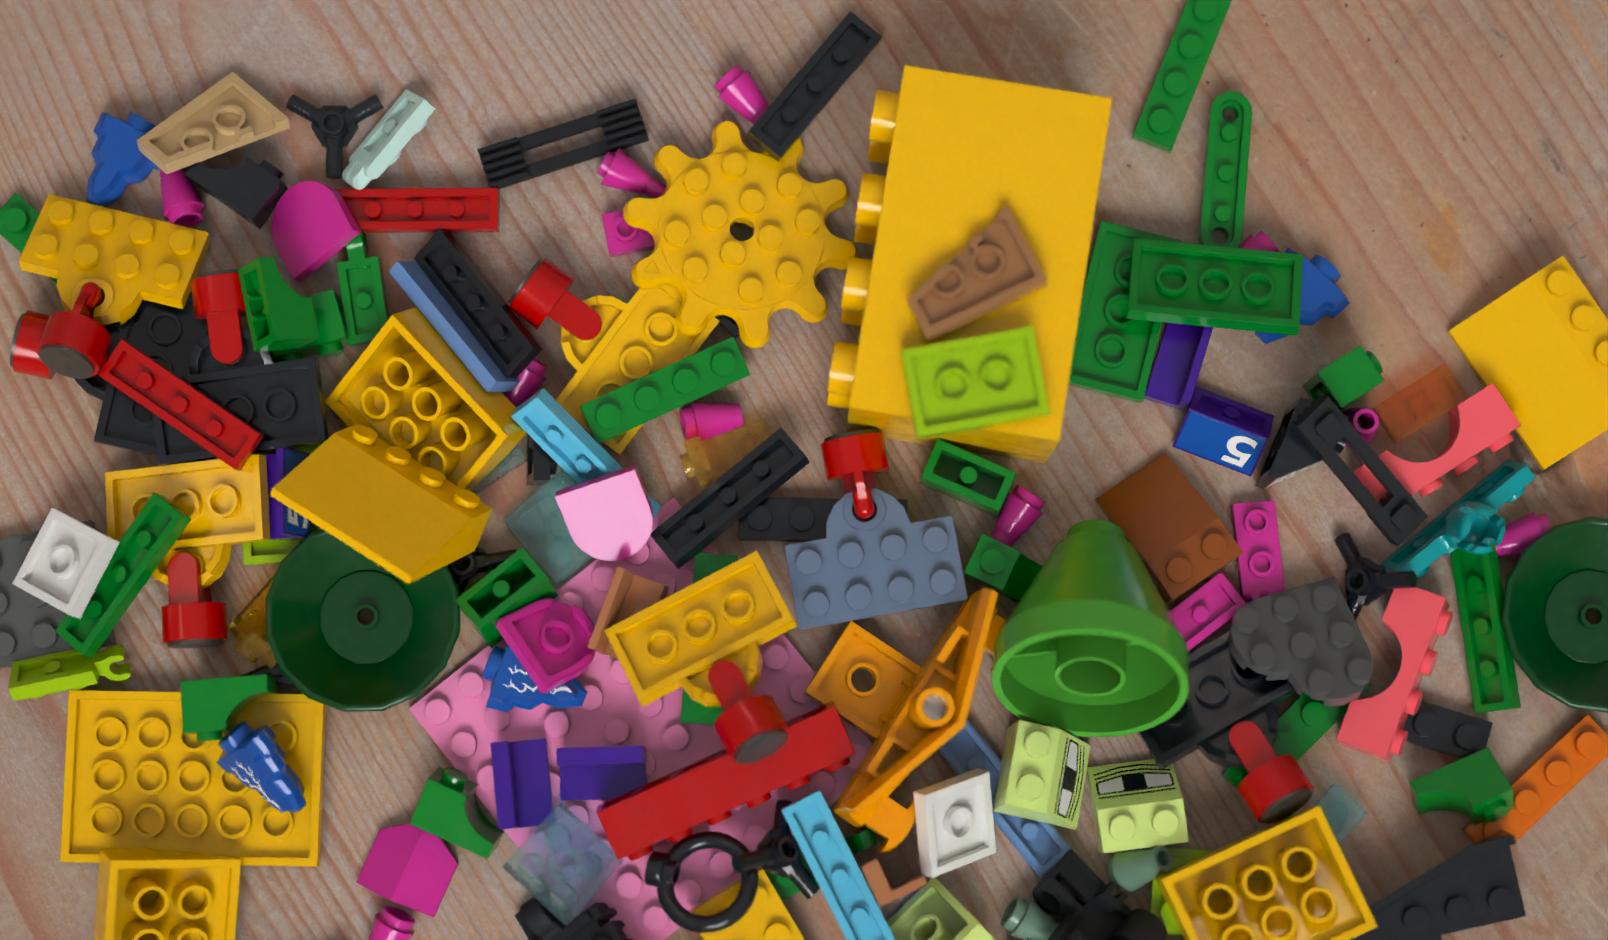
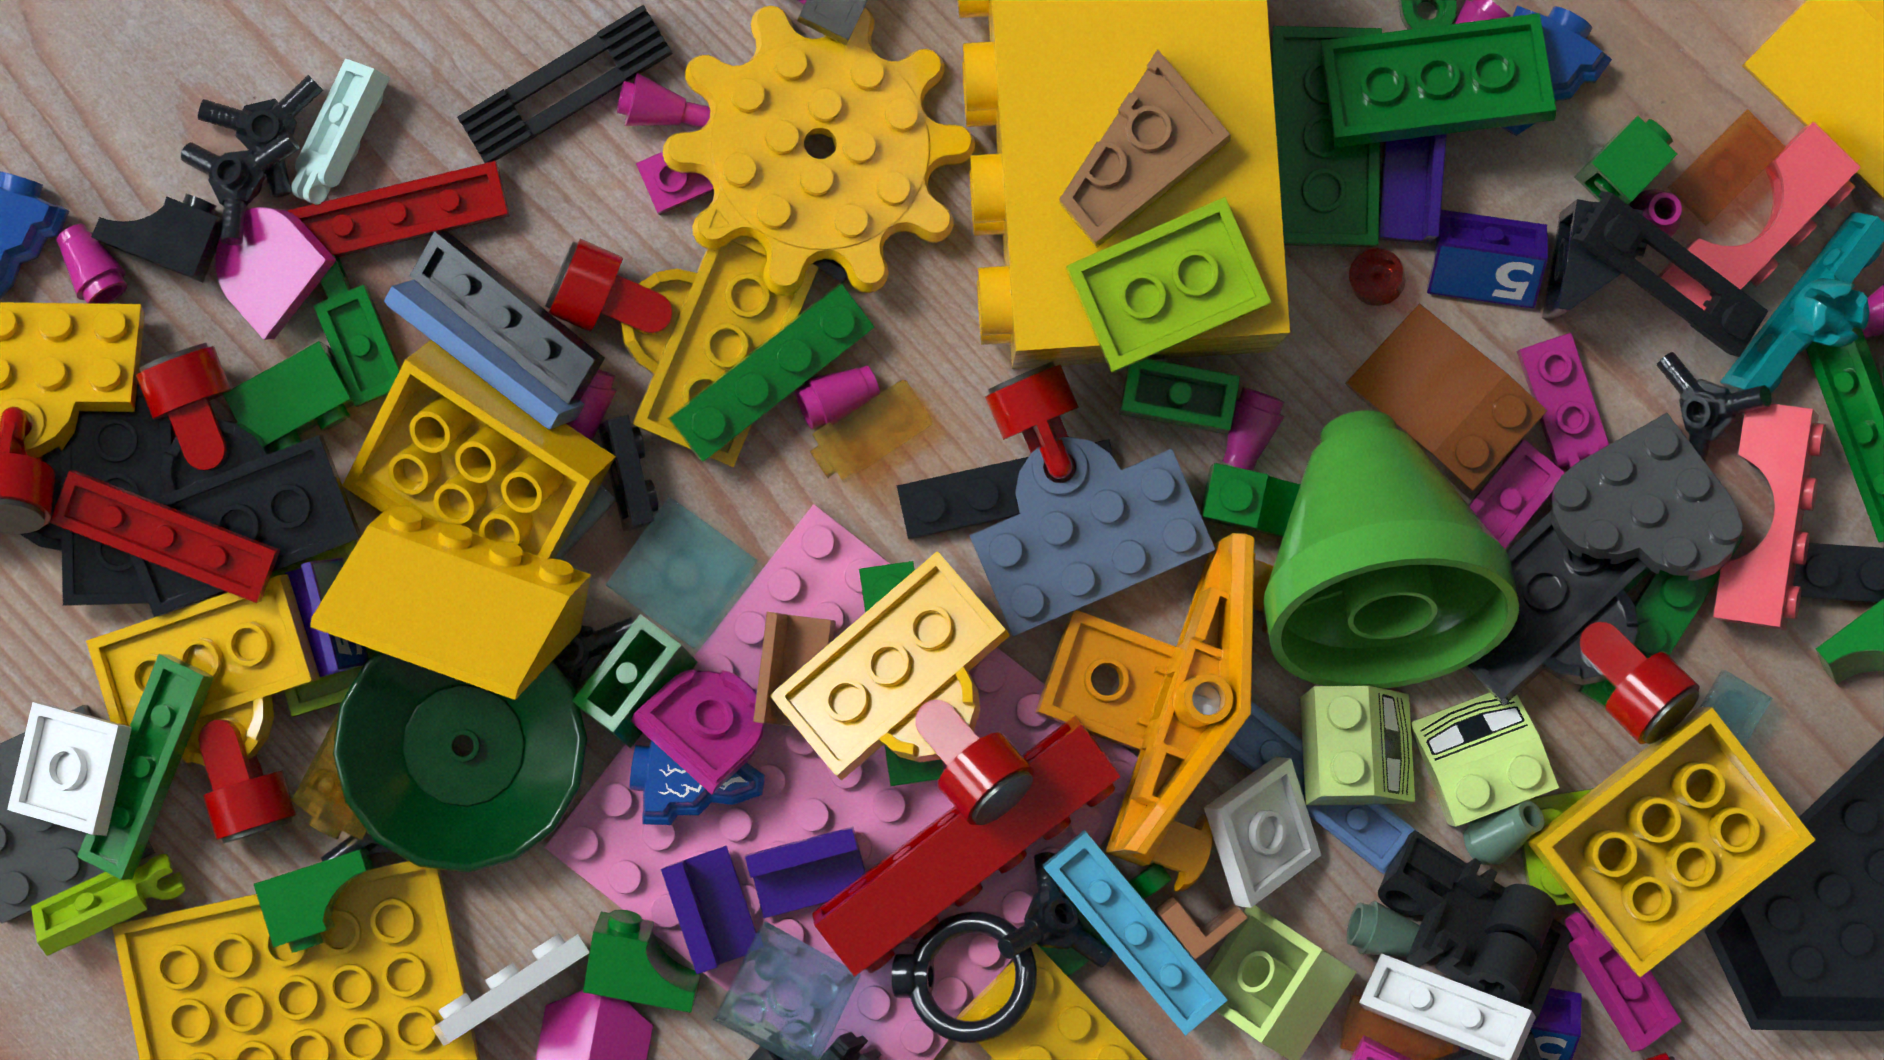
camera: 15 degrees left, 5 degrees up
(212, 124) = (110, 164): tan wing -> none
(261, 766) = (380, 964): blue rock -> none
(274, 311) = (254, 389): green arch -> none
(305, 157) = (238, 178): none -> black piece
(354, 806) = (508, 986): none -> white plate
(565, 440) = (693, 487): medium azure plate -> none
(608, 514) = (739, 547): tile -> none
(729, 498) = (886, 490): black plate -> none
(1137, 425) = (1377, 277): none -> clear red tile

